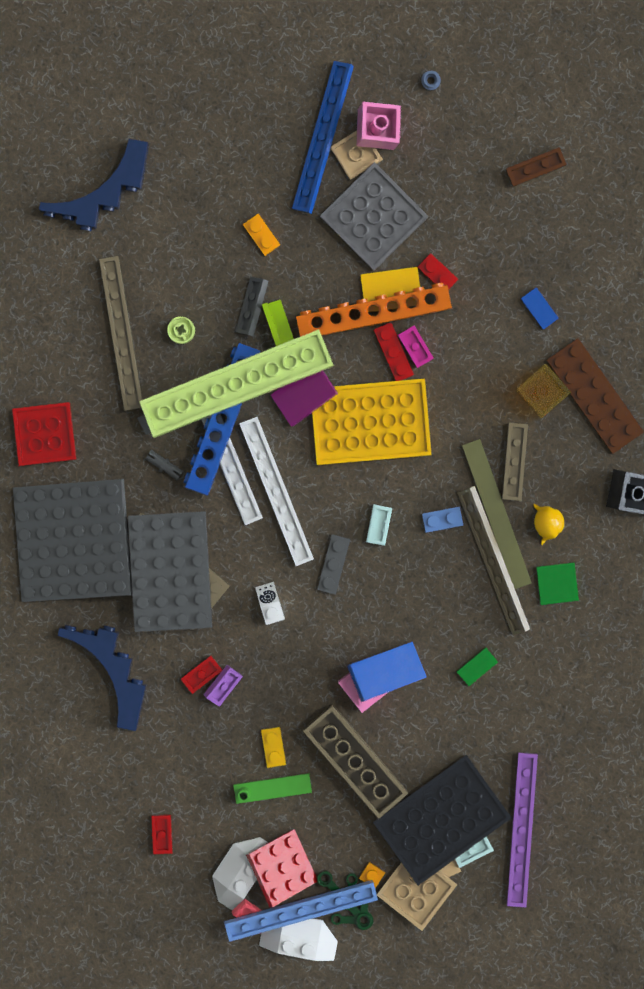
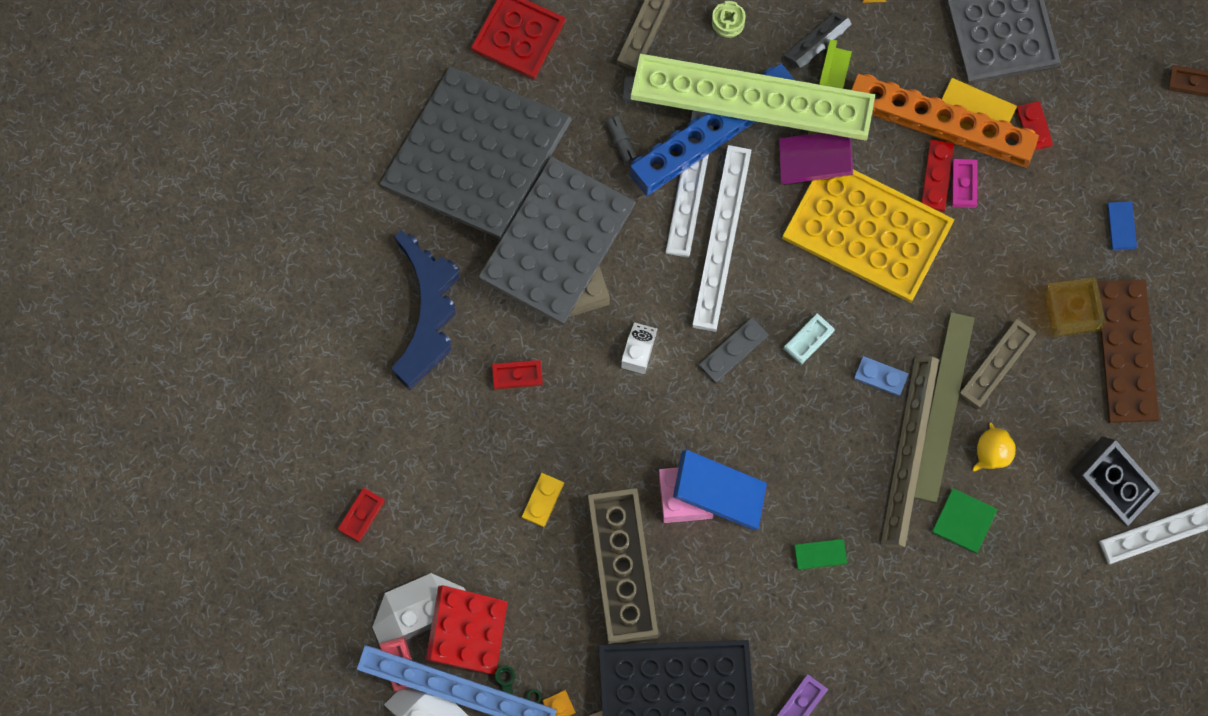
camera: 35 degrees right, 15 degrees down
(223, 685) = (532, 400): medium lavender plate -> none
(272, 788) = (513, 543): bright green piece -> none

